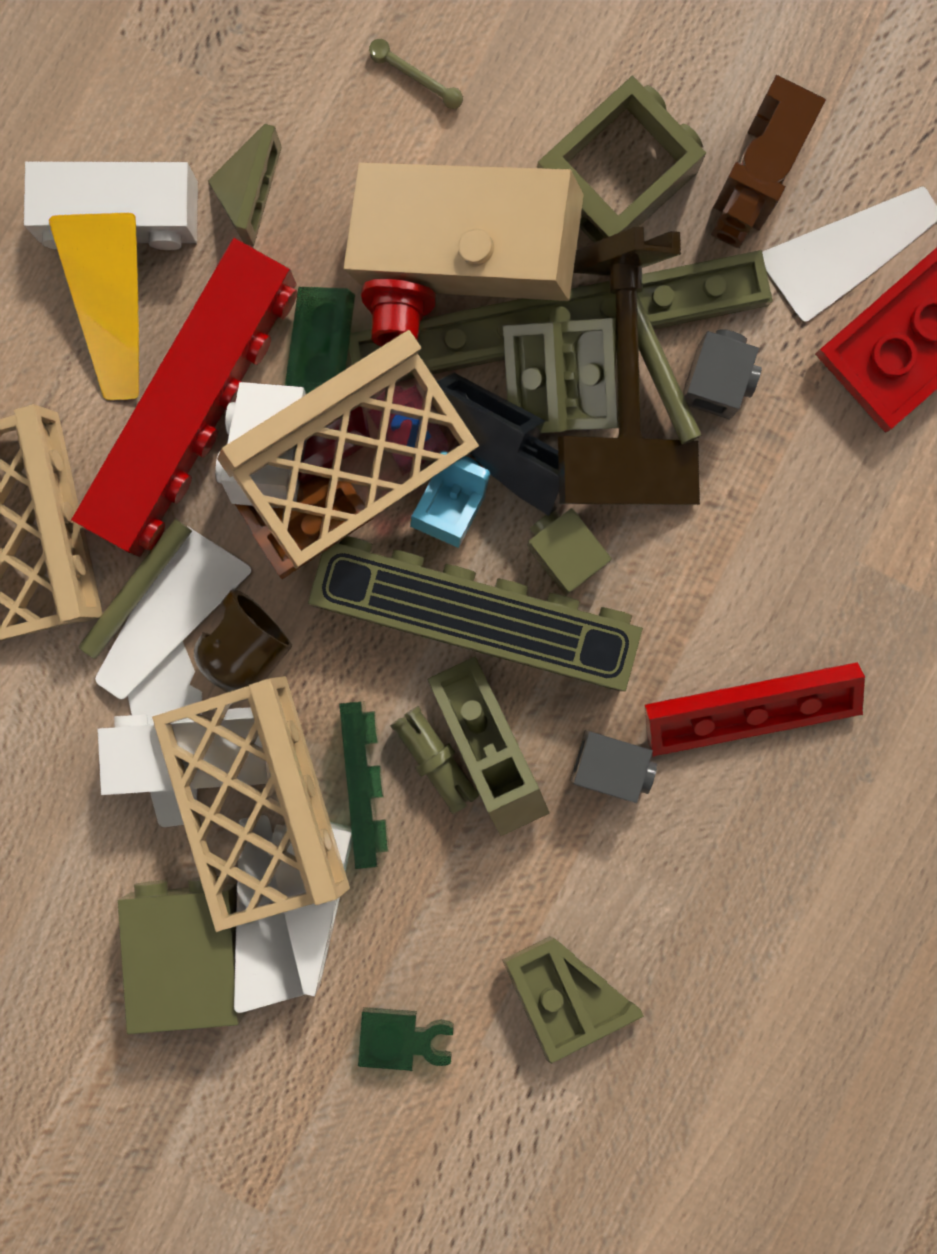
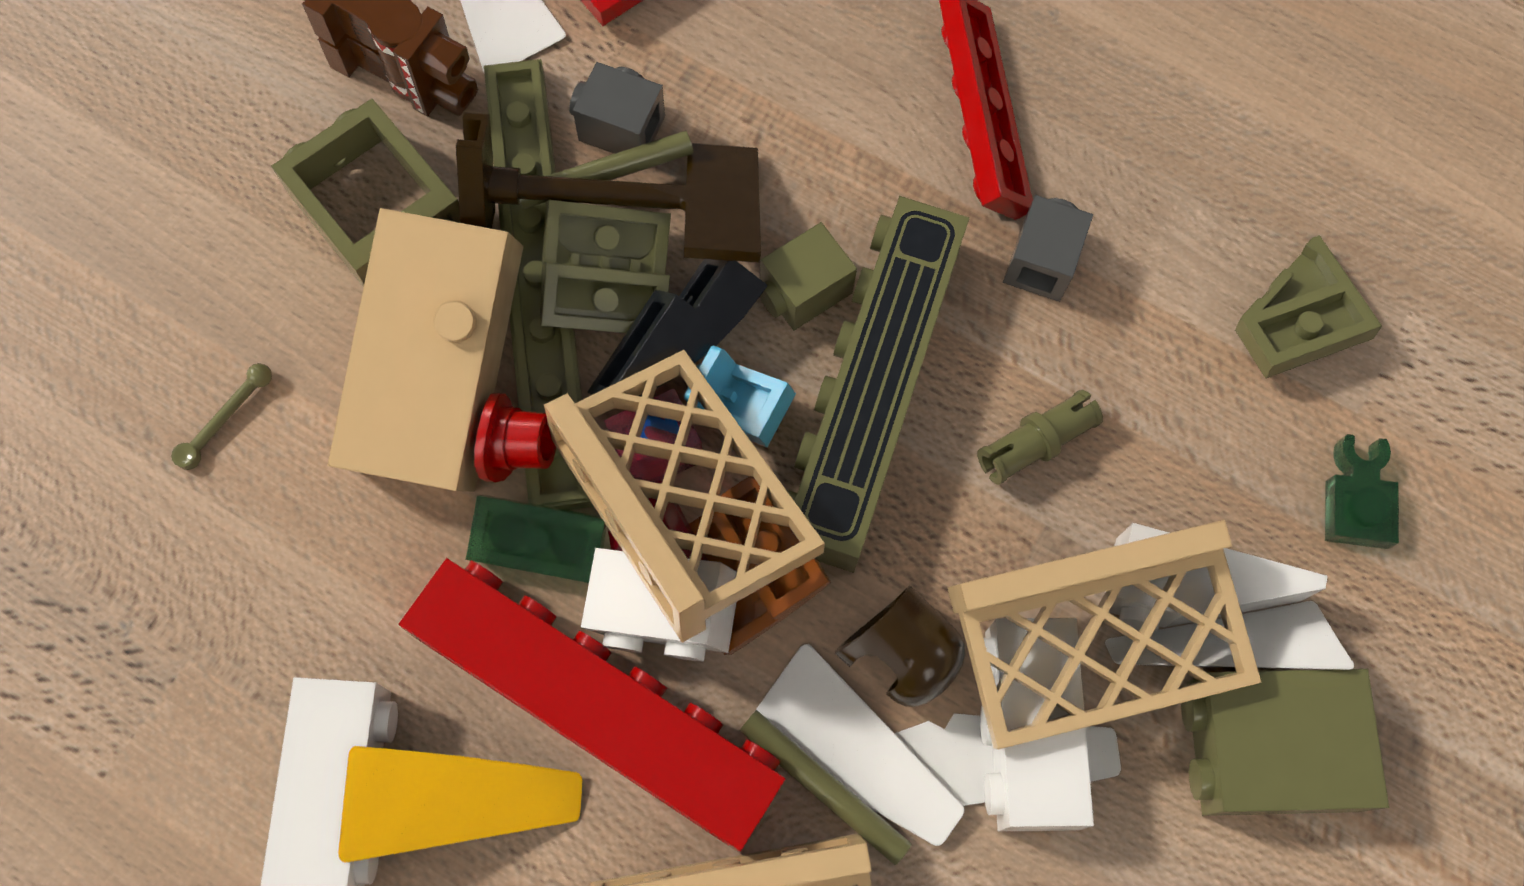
camera: 90 degrees left, 15 degrees down
(246, 181) = (327, 622): olive slope -> none
(363, 784) = (1067, 516): clear green plate -> none
(488, 746) = (1025, 374): olive slope -> none

